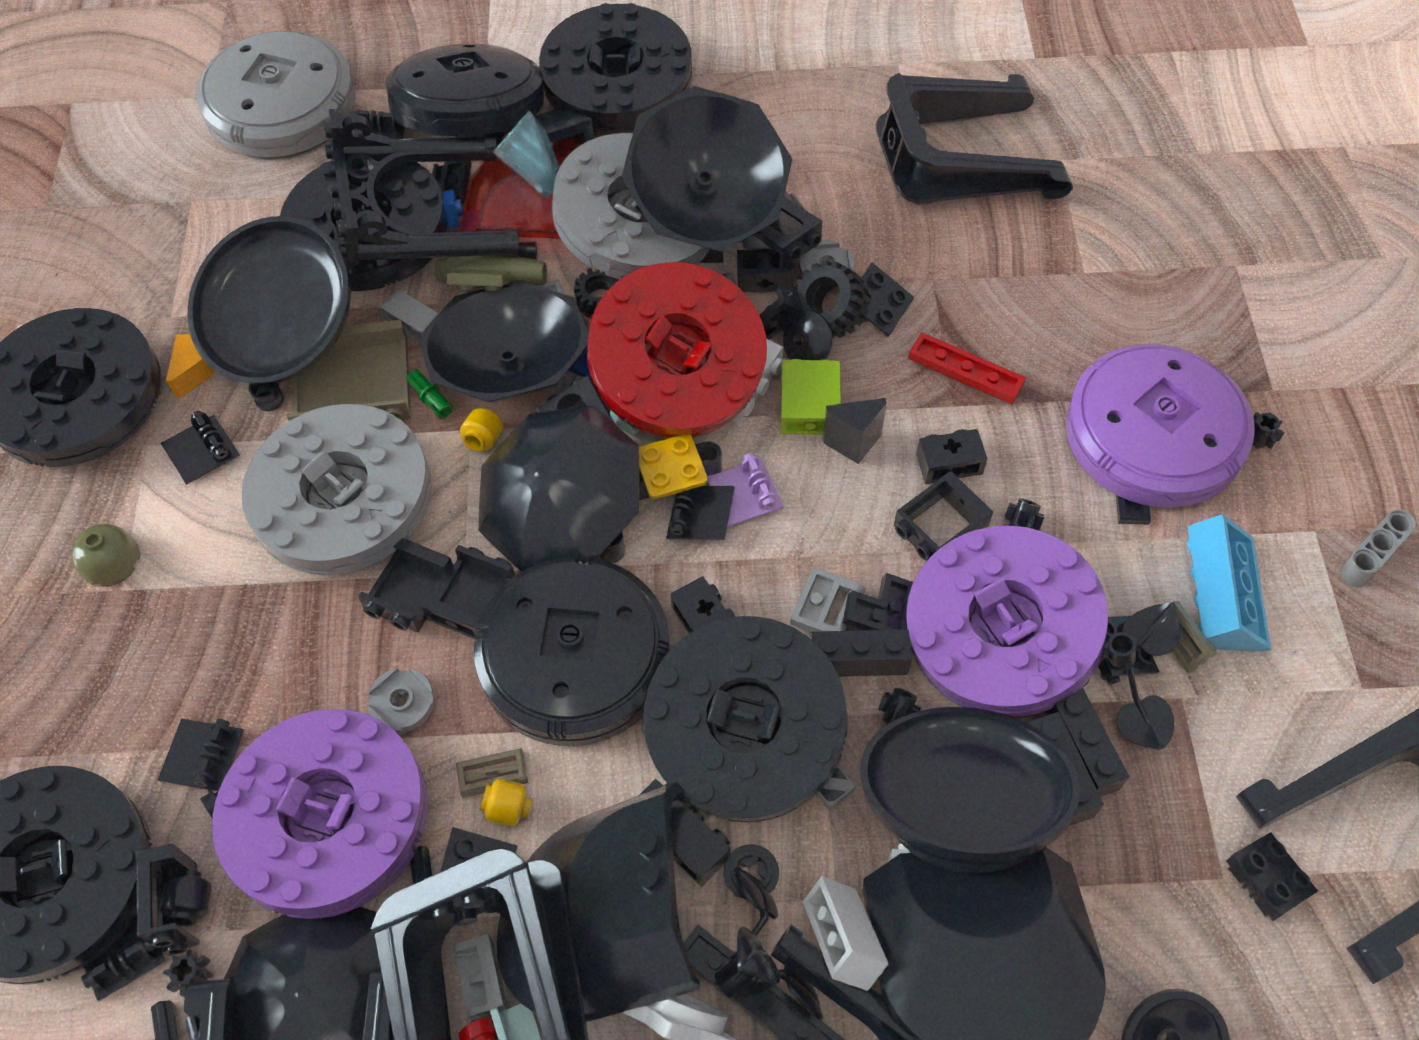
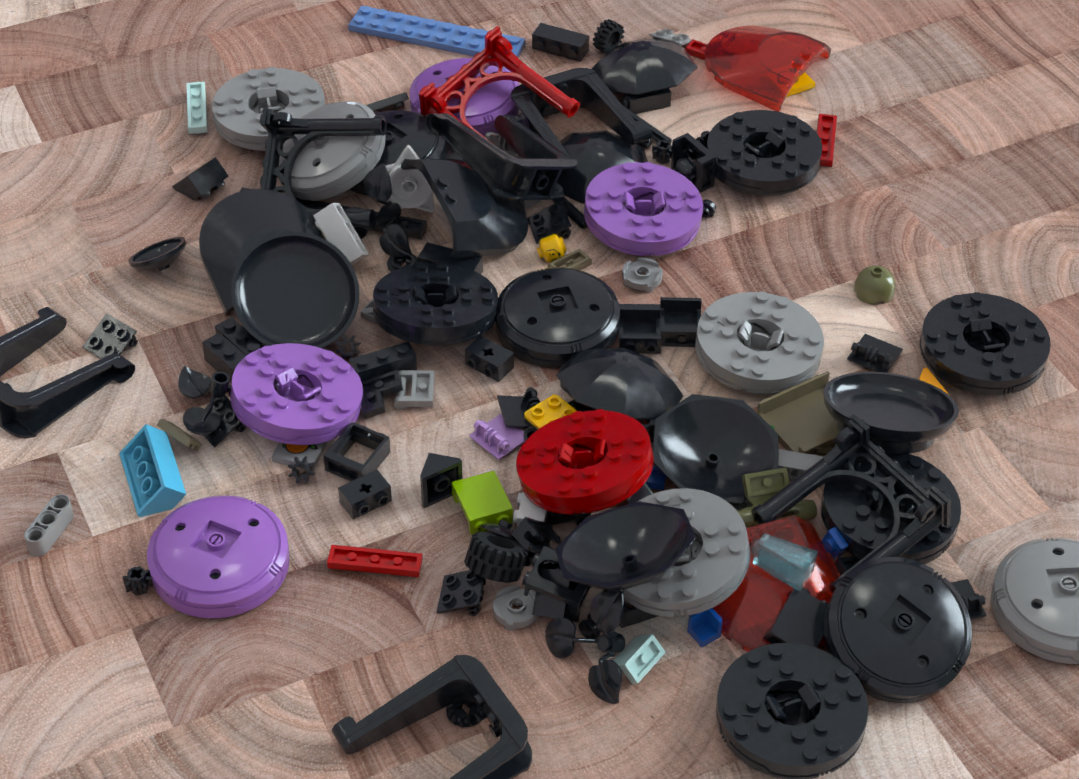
camera: 155 degrees right, 15 degrees down
(201, 754) = (732, 224): black hinge -> none

